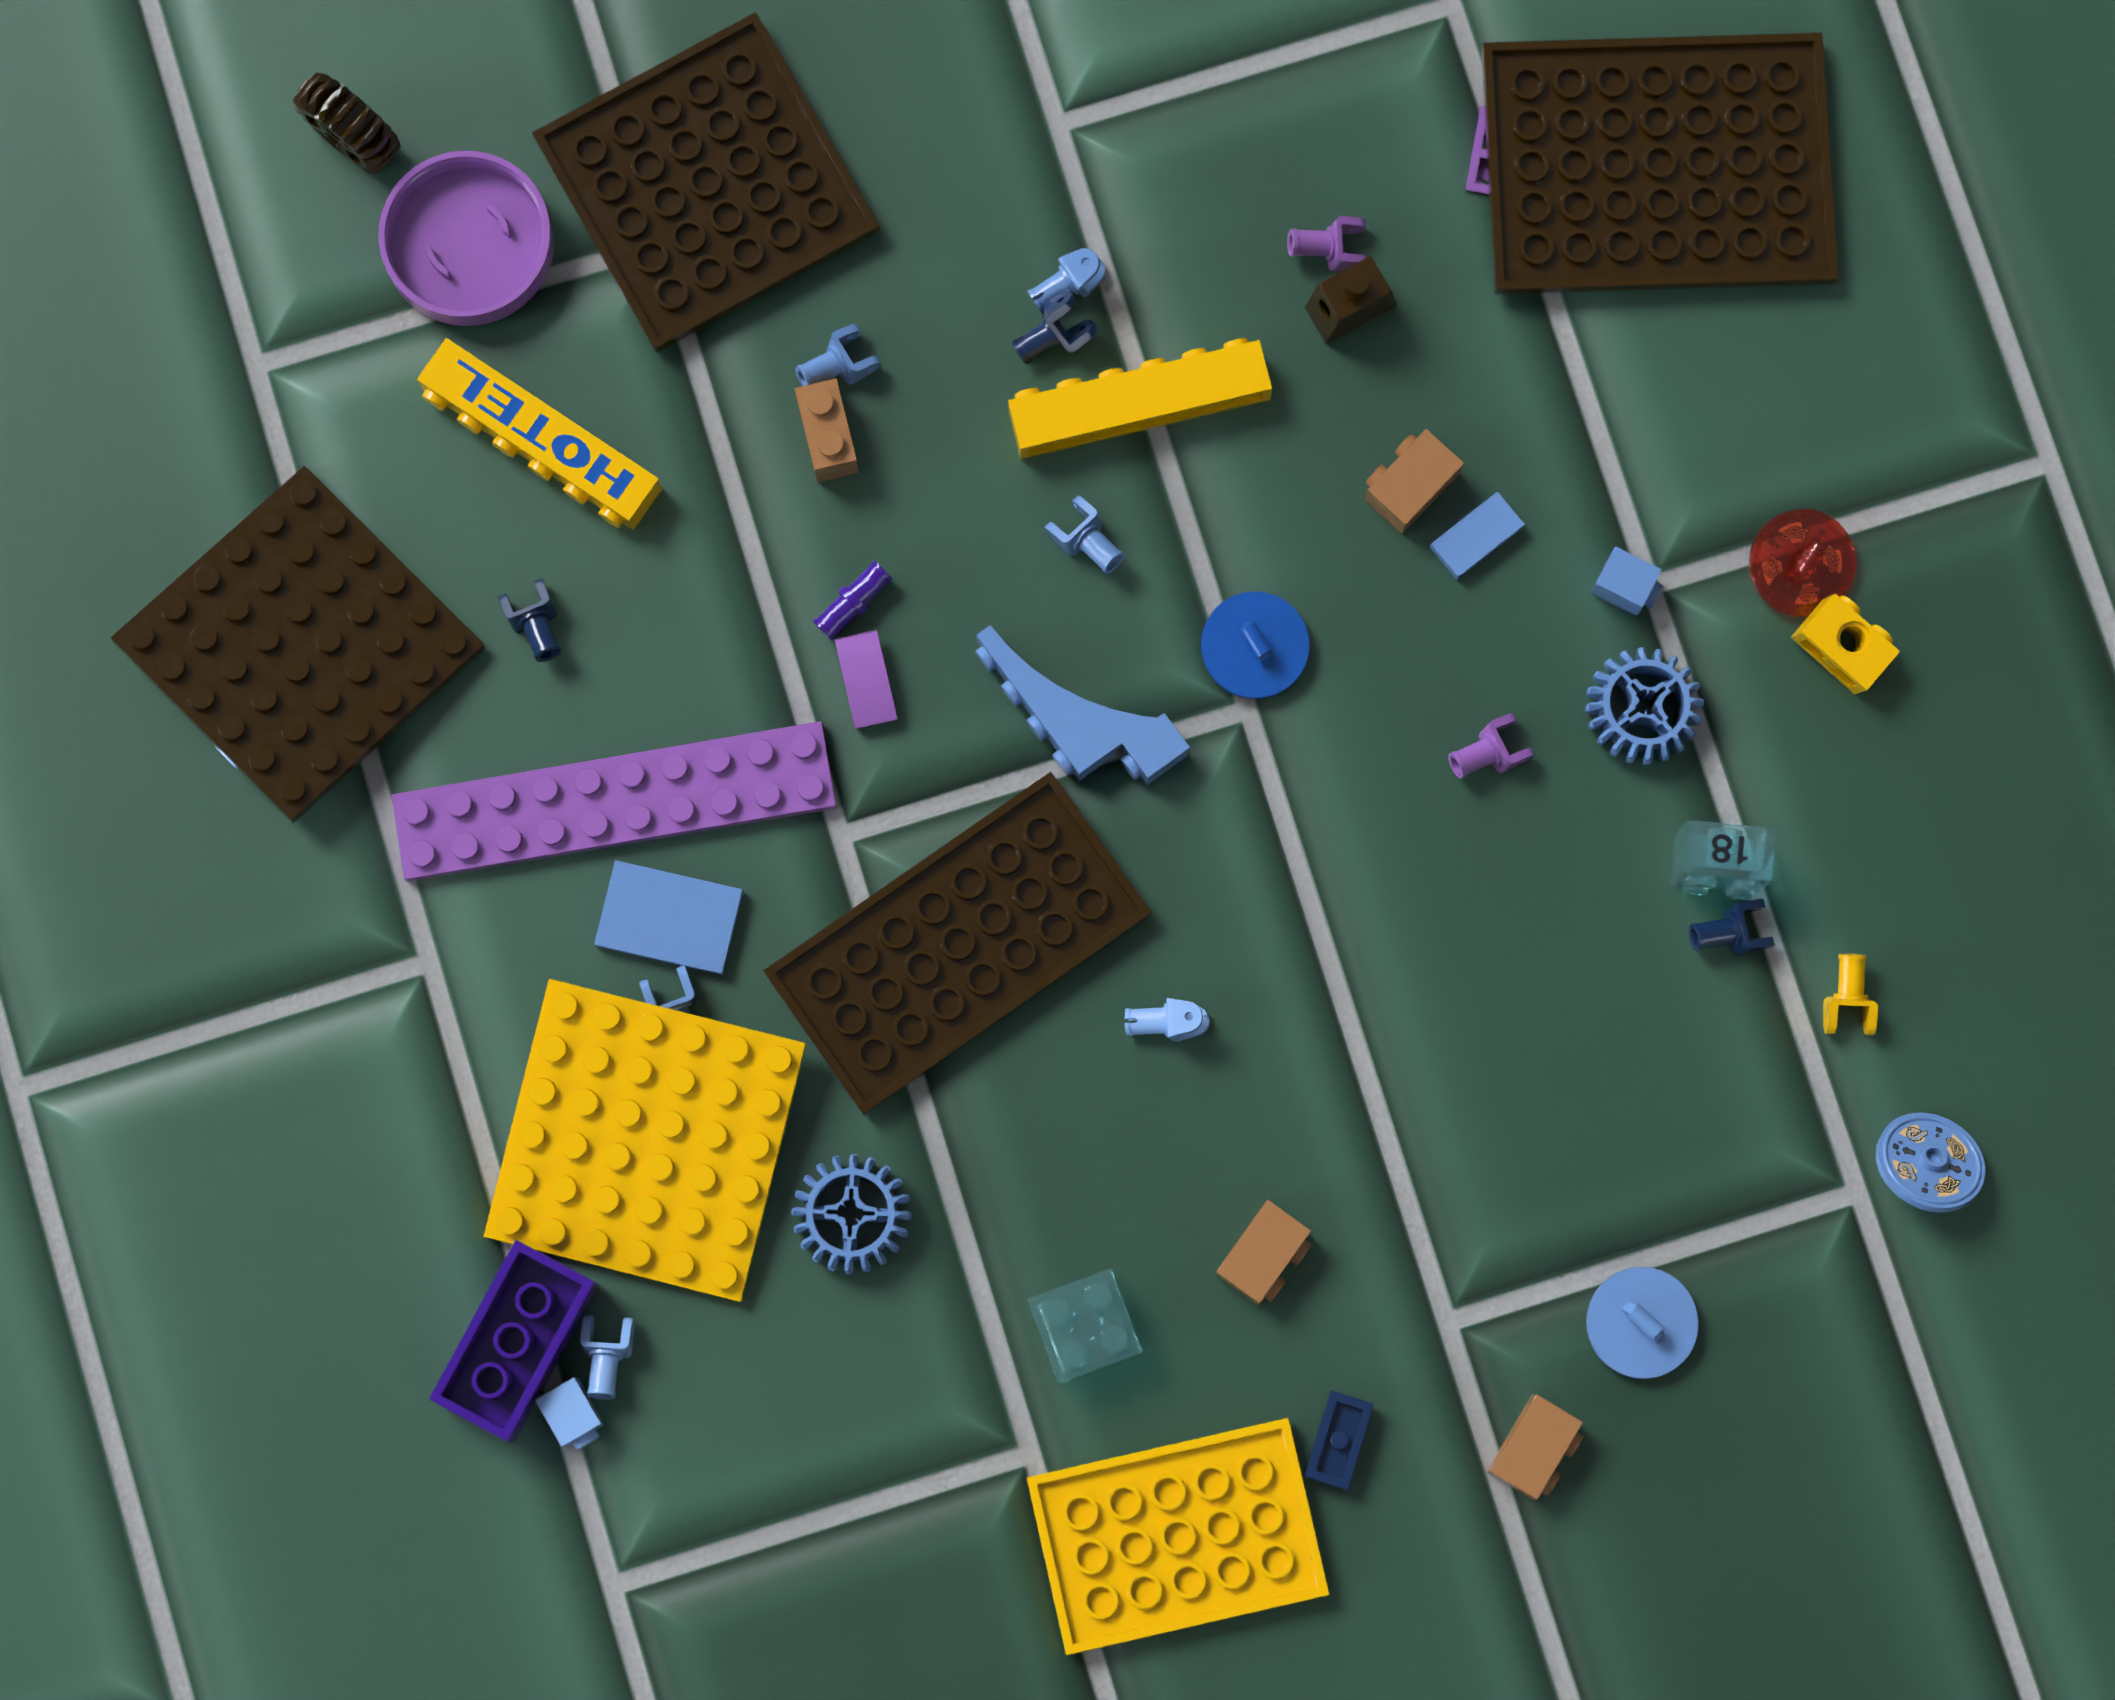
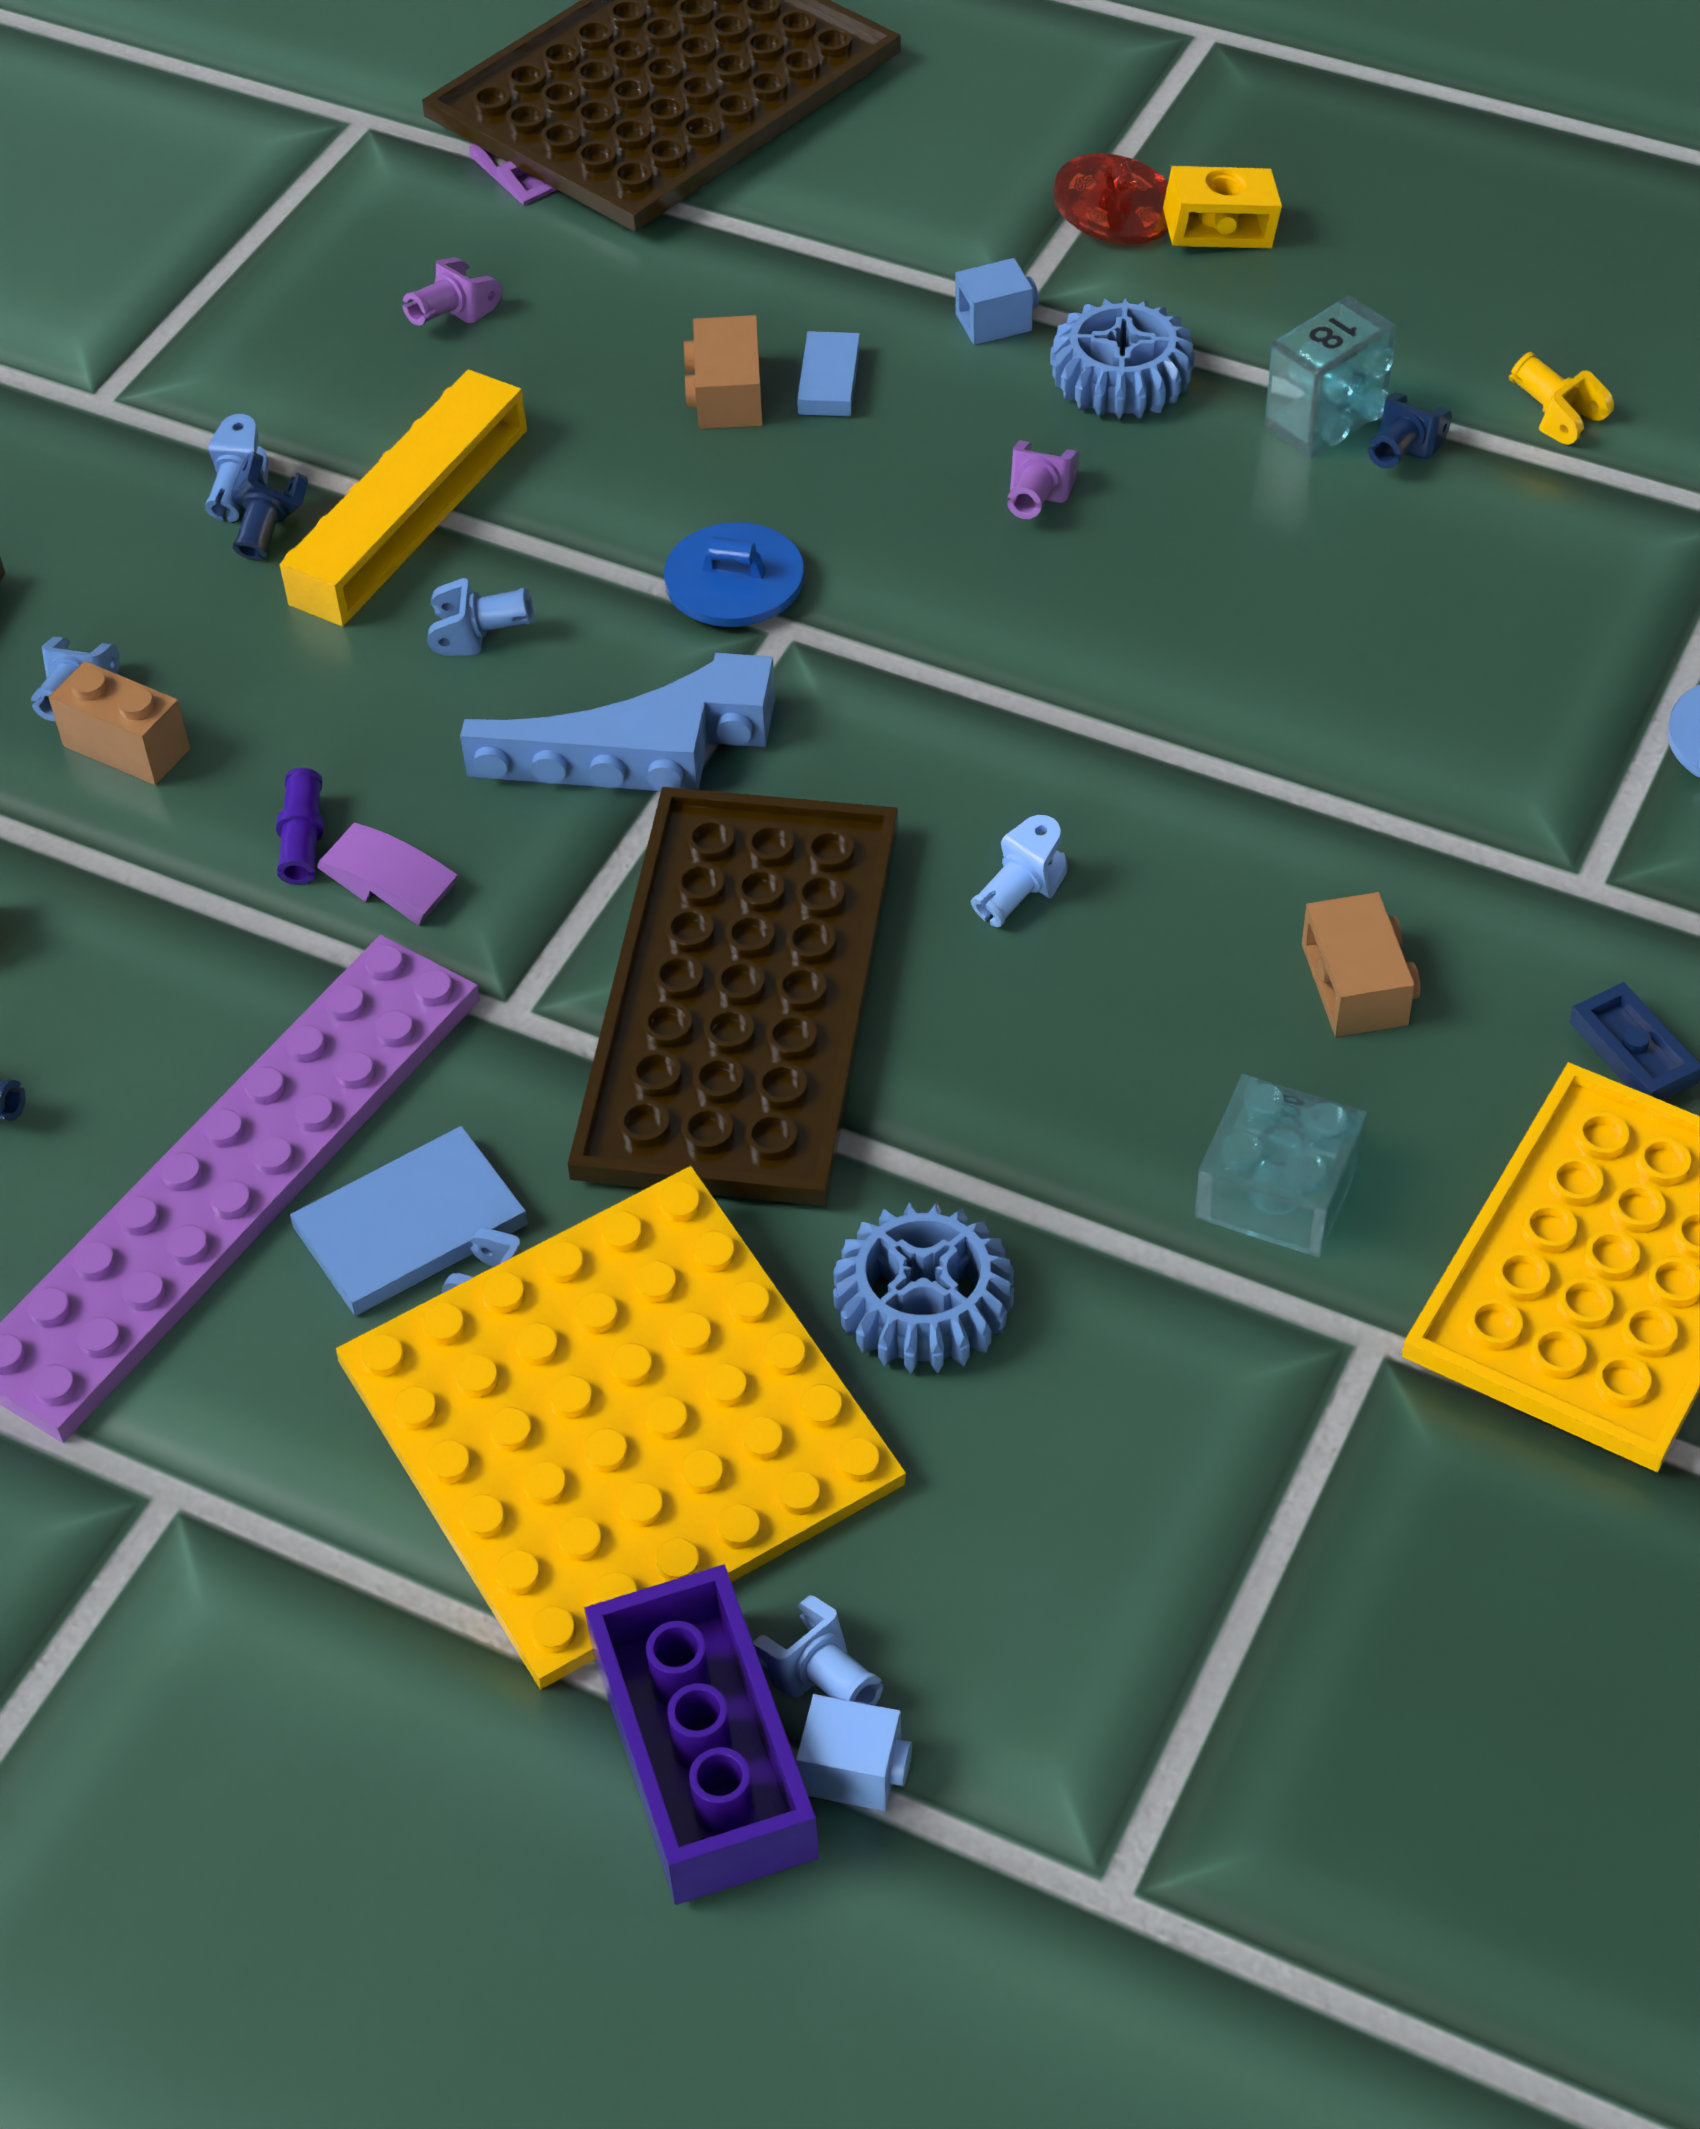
camera: 45 degrees left, 30 degrees down
(1352, 299) = (515, 299): dark brown torso -> none

